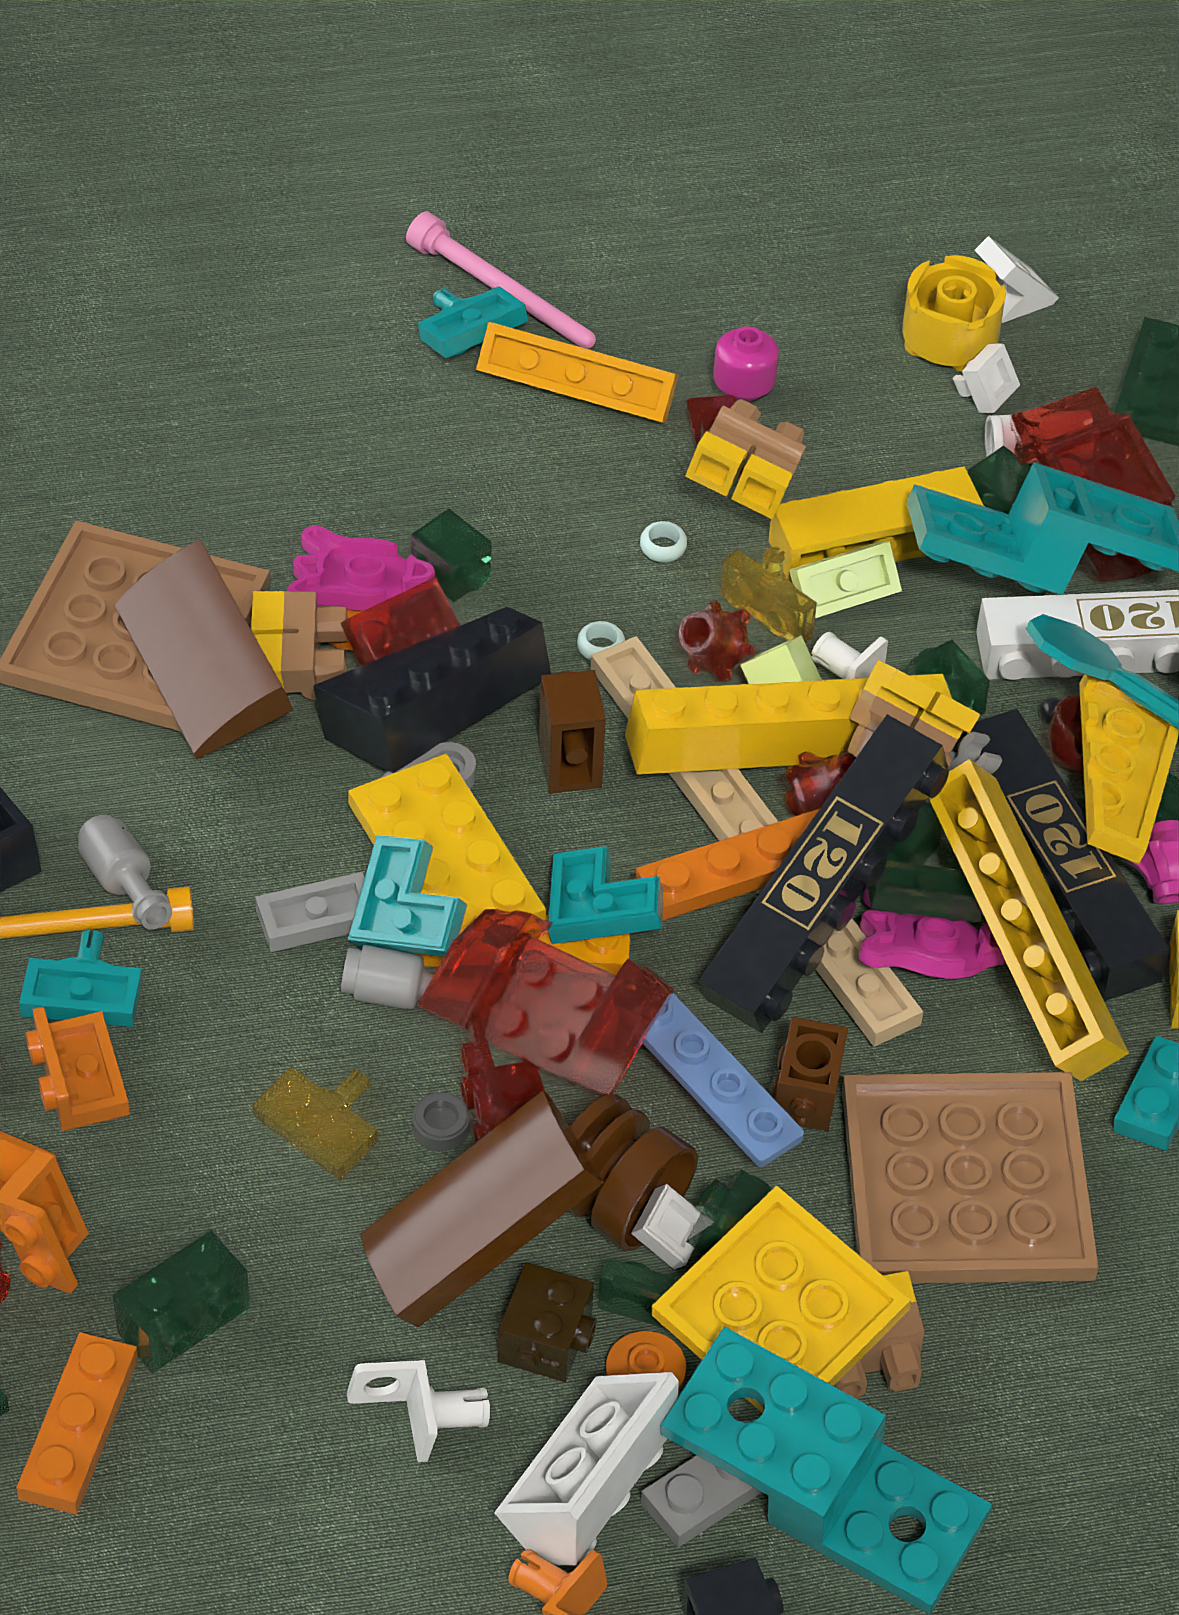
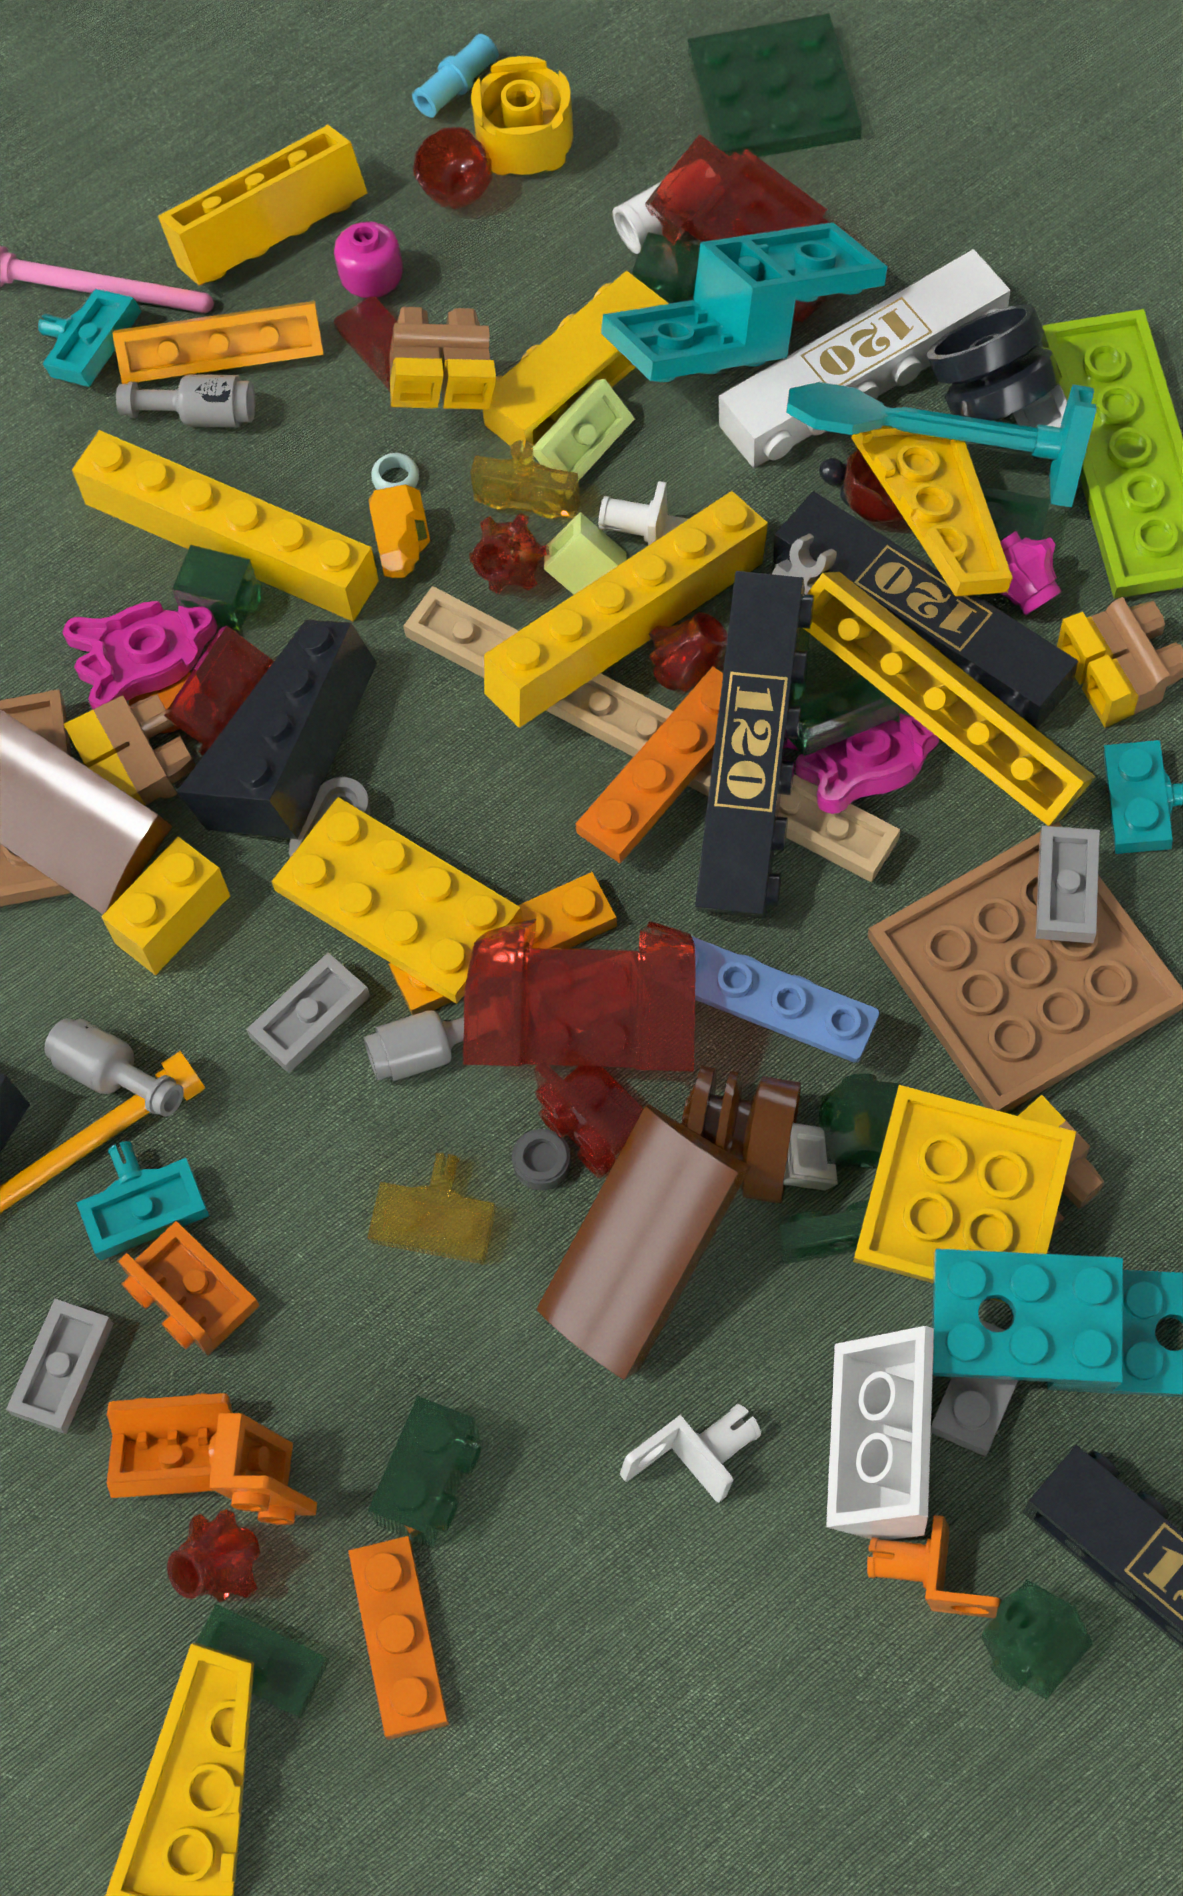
camera: 20 degrees left, 15 degrees up
(250, 772) = (166, 905): none -> yellow brick
(391, 904) = (384, 983): tile -> none
(463, 477) = (211, 515): none -> yellow brick
(529, 407) = (198, 400): none -> light grey piece
(547, 1322) = (756, 1310): dark brown head -> none
(571, 731) = (437, 715): reddish brown brick -> none
(592, 907) = (560, 885): teal tile -> none
(595, 630) = (392, 591): light aqua piece -> none
(636, 579) = (399, 528): none -> light orange rock
(646, 1353) = (859, 1301): orange piece -> none
(682, 283) = (263, 205): none -> yellow brick
(810, 1071) = (843, 943): reddish brown head -> none
(866, 325) = (453, 167): none -> clear red hair
(905, 260) = (455, 75): none -> medium azure pin
(911, 703) = (724, 544): yellow hips -> none
(964, 679) = (731, 474): clear green bracket -> none
(988, 378) = (588, 168): white tile -> none
(1023, 286) = (558, 53): white slope -> none
(1041, 1118) = (1067, 884): none -> light grey plate

